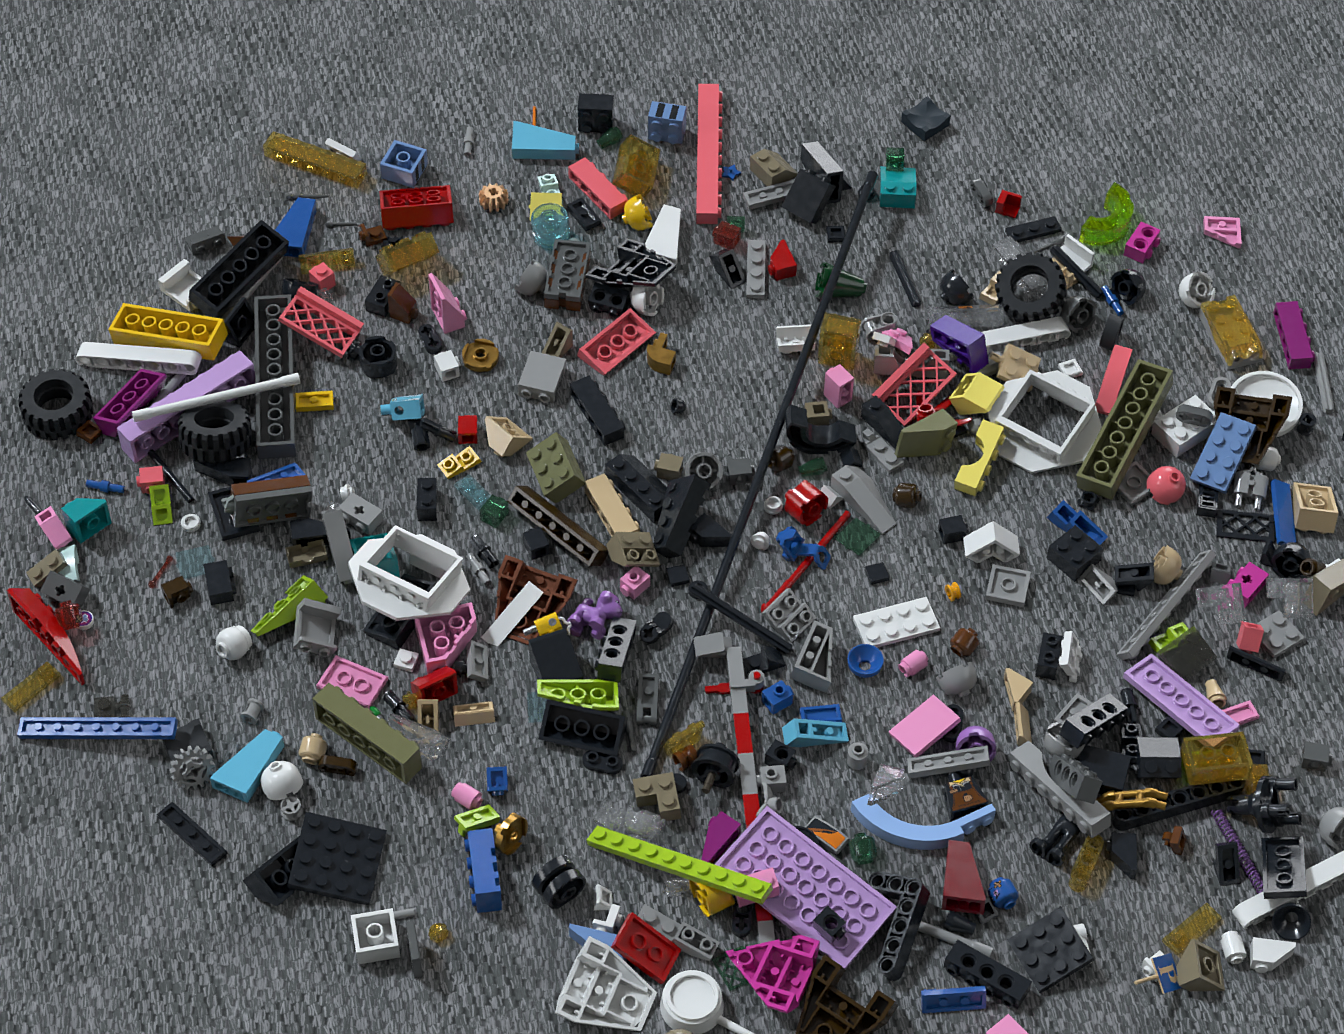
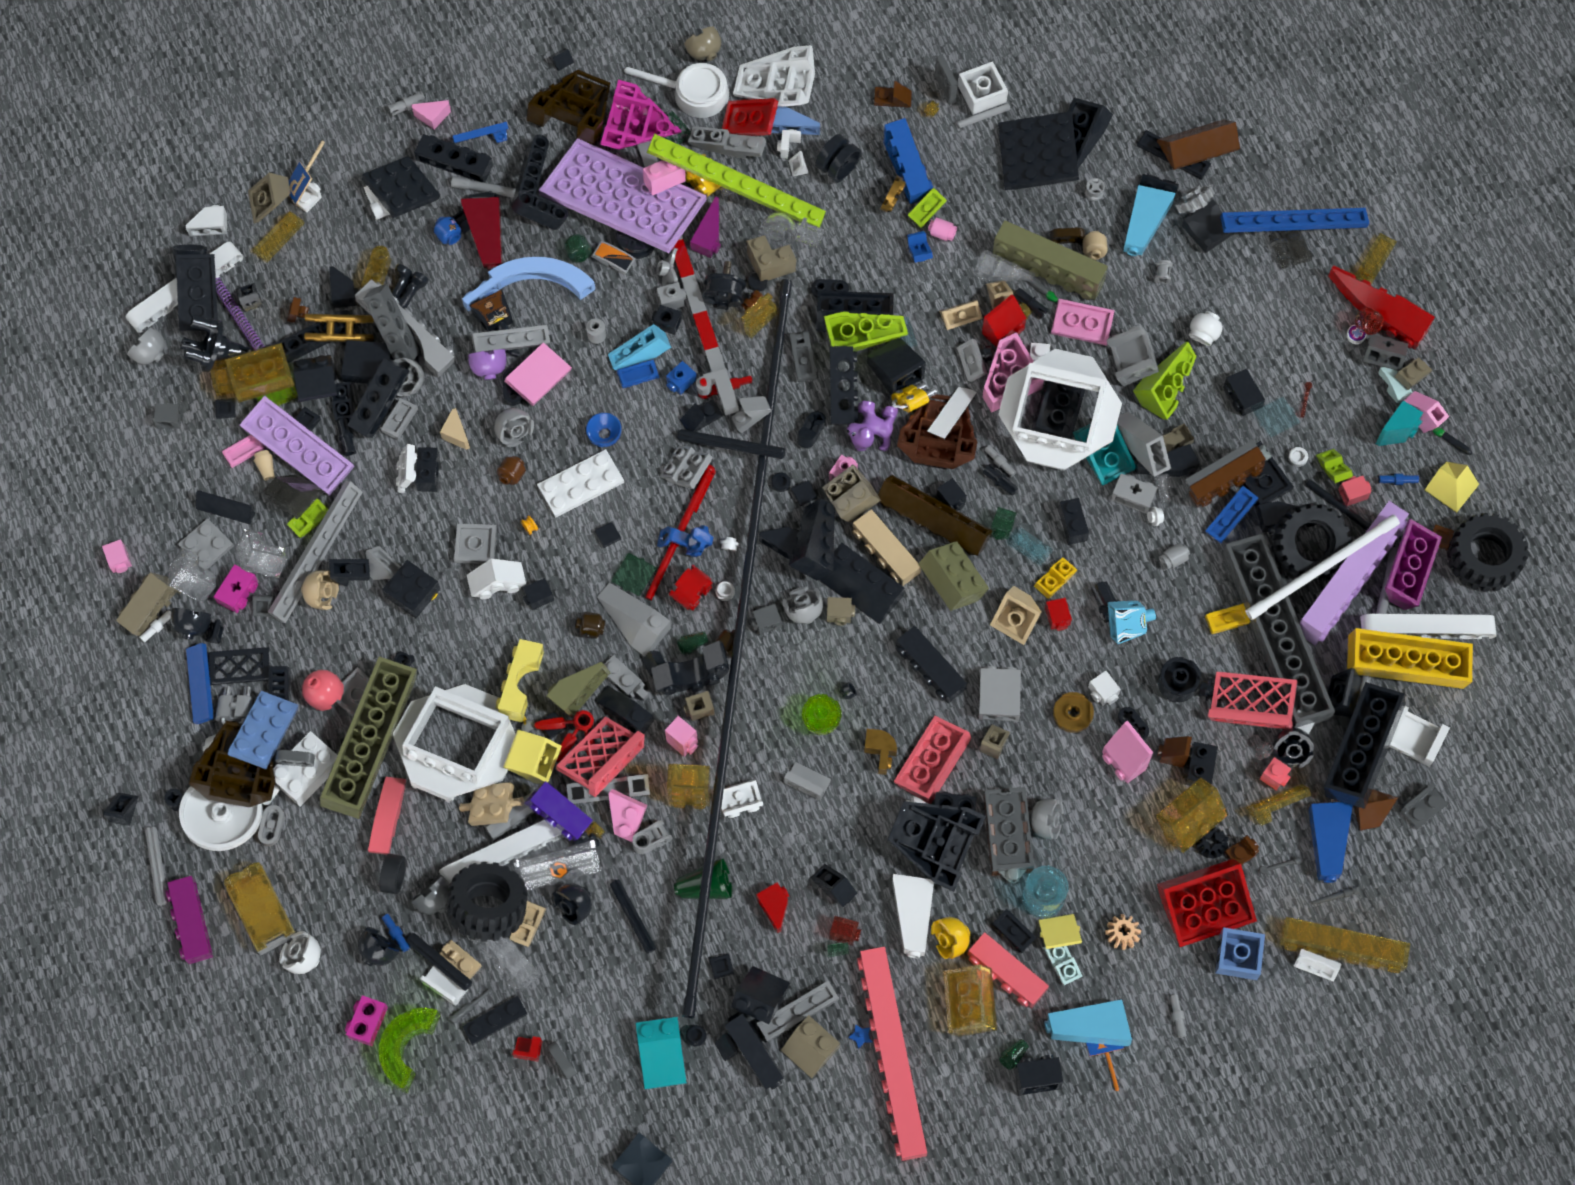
camera: 170 degrees right, 15 degrees up
(58, 473) = (1452, 485): none -> light yellow slope
(160, 836) = (1200, 143): none -> reddish brown slope
(176, 591) = (1280, 375): dark brown brick -> none
(228, 805) = (1157, 183): none -> black hinge
(281, 779) = (1111, 206): white cylinder -> none
(343, 456) = (1174, 556): none -> light grey brick
(438, 429) = (1087, 603): black axle -> none
(473, 955) = (893, 97): none -> reddish brown slope
(667, 122) = (950, 1078): medium blue brick -> none
(708, 381) = (821, 714): none -> clear neon green cylinder
(733, 345) = (807, 781): none -> light grey panel
(756, 269) = (802, 895): light grey plate -> none
(815, 661) = (653, 420): light grey wedge -> none
(827, 916) = (594, 159): black brick -> none
(833, 496) = (670, 612): white slope -> none
(883, 340) = (640, 793): white plate -> none
(886, 784) = (565, 305): clear slope -> none
(895, 159) = (669, 1084): clear green brick -> none
(913, 663) = (557, 440): bright pink brick -> none
(1022, 724) = (445, 396): tan slope -> none
(1066, 517) = (412, 626): blue slope -> none
(1070, 368) = (435, 828): white tile -> none
(1223, 229) = (271, 1064): bright pink wing -> none
(1233, 947) = (241, 222): white brick -> none
(1249, 637) = (231, 525): coral brick -> none
(1310, 567) = (170, 598): dark brown cone -> none
(1314, 508) = (167, 698): tan slope -> none

